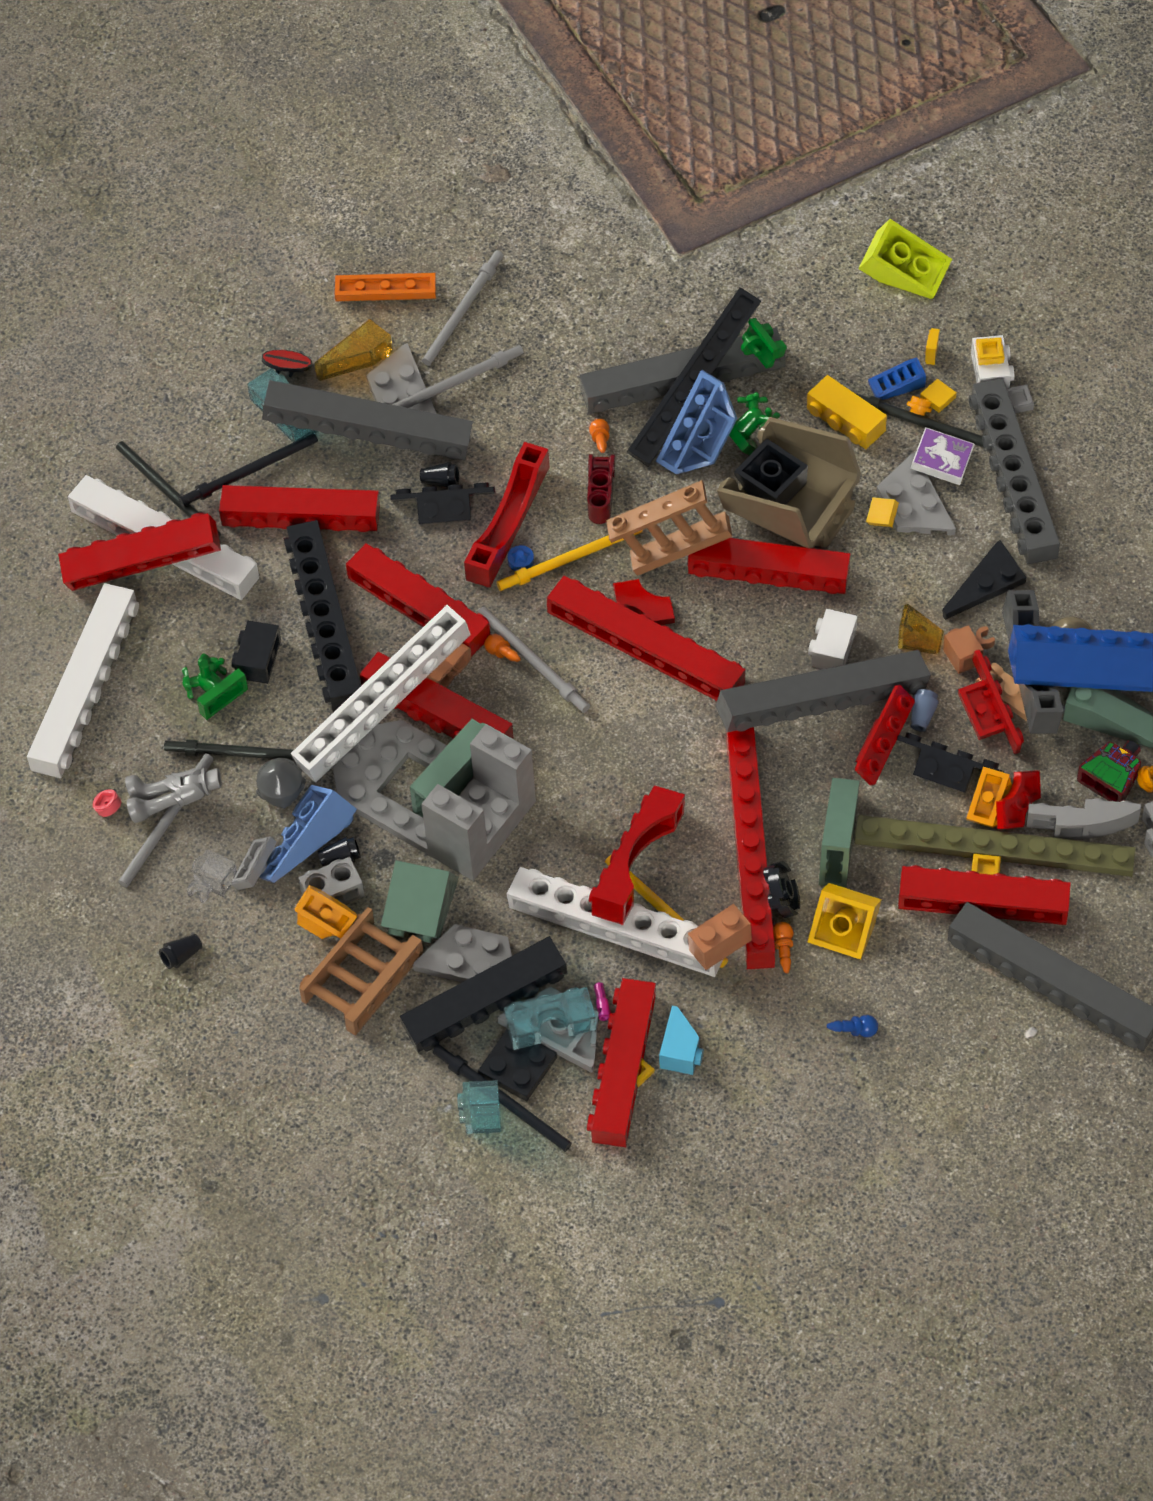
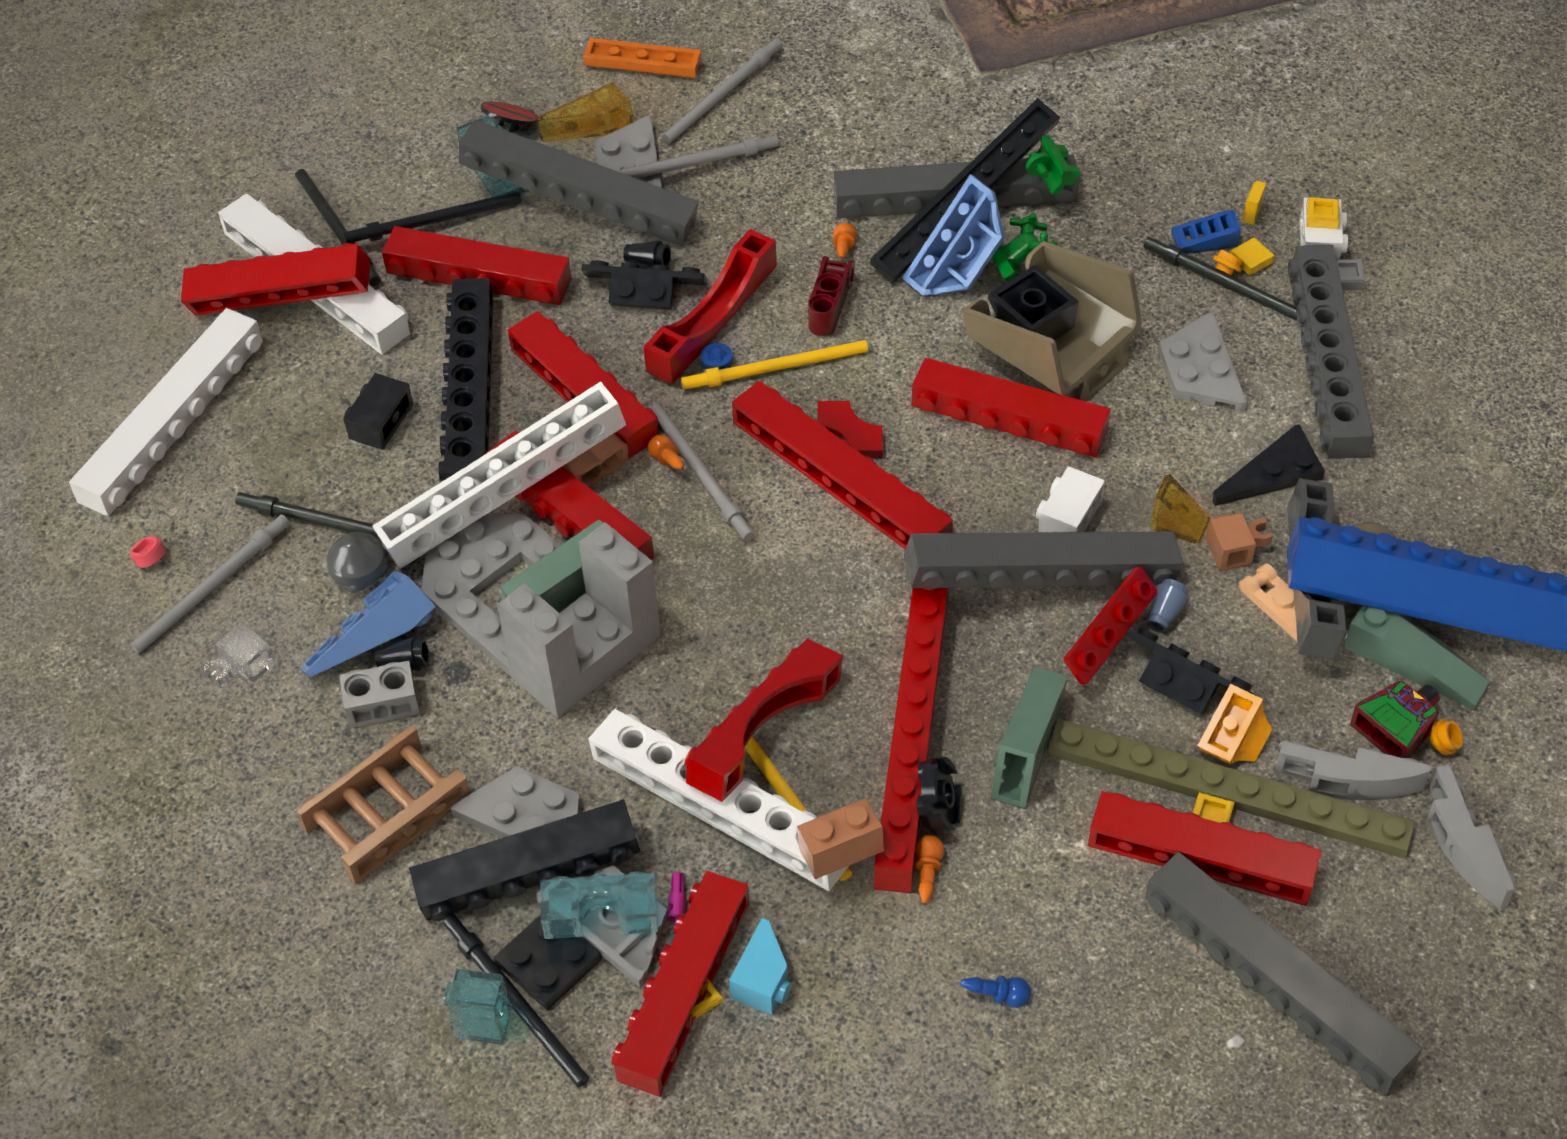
camera: 10 degrees right, 5 degrees down
(179, 951) = (172, 739): black cone -> none
(184, 789) = (228, 548): light grey piece -> none
(218, 691) = (317, 446): green piece -> none
(254, 863) = (295, 651): light grey plate -> none
(323, 914) = (355, 723): light orange slope -> none
(418, 901) = (478, 729): sand green slope -> none
(677, 544) = (904, 366): medium nougat fence -> none
(844, 920) = (1013, 848): yellow slope -> none
(846, 412) = (1132, 247): yellow brick -> none
(882, 512) = (1160, 370): yellow tile -> none
(904, 261) = (1239, 110): neon yellow slope -> none
(942, 456) = (1244, 320): tile -> none
(986, 707) = (1248, 615): red bracket -> none
(1013, 807) = (1261, 743): red tile -> none

